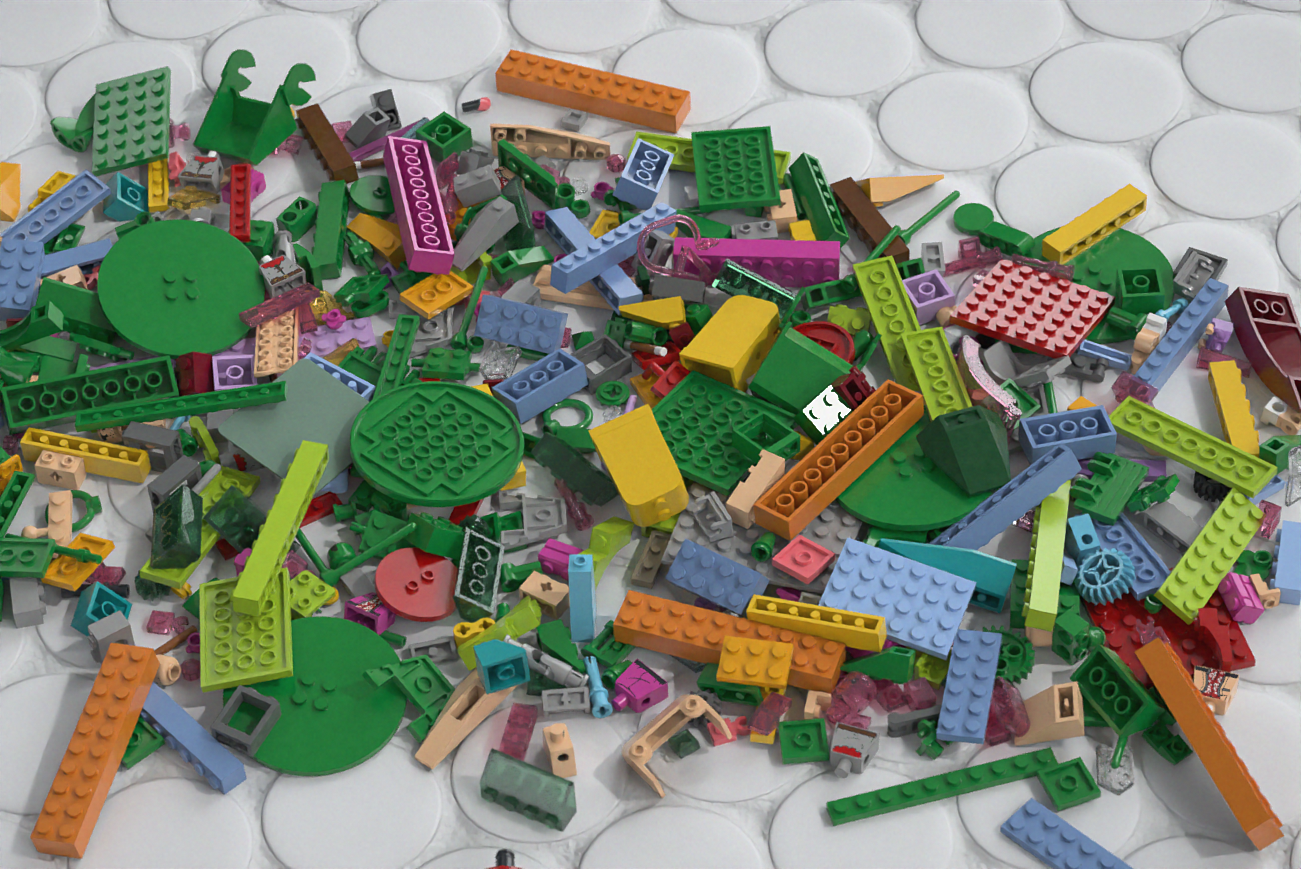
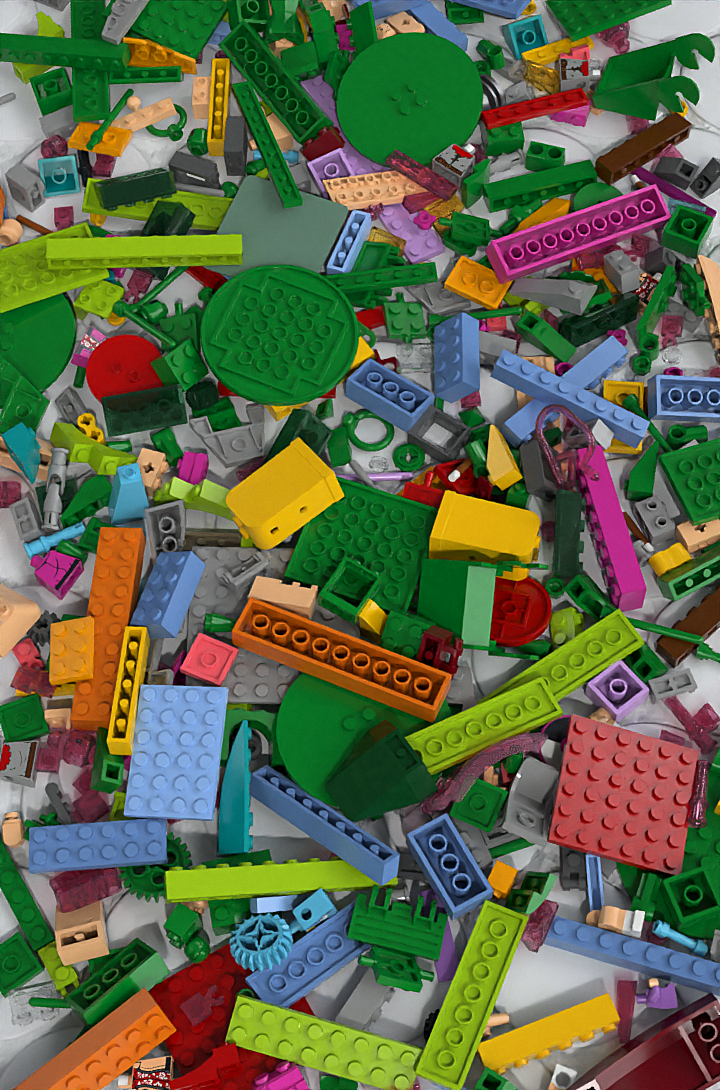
camera: 75 degrees right, 15 degrees up
(59, 612) = (54, 146): none -> clear pink head
(123, 483) = (197, 142): none -> green head
(525, 140) = (693, 290): none -> green plate
(625, 574) = (166, 528): none -> light grey wedge
(674, 193) = (686, 435): none -> green piece
(925, 764) = (13, 830): none -> light nougat arm
(1083, 747) = (63, 975): none -> lime hinge
(1105, 388) = (532, 892): none -> green slope

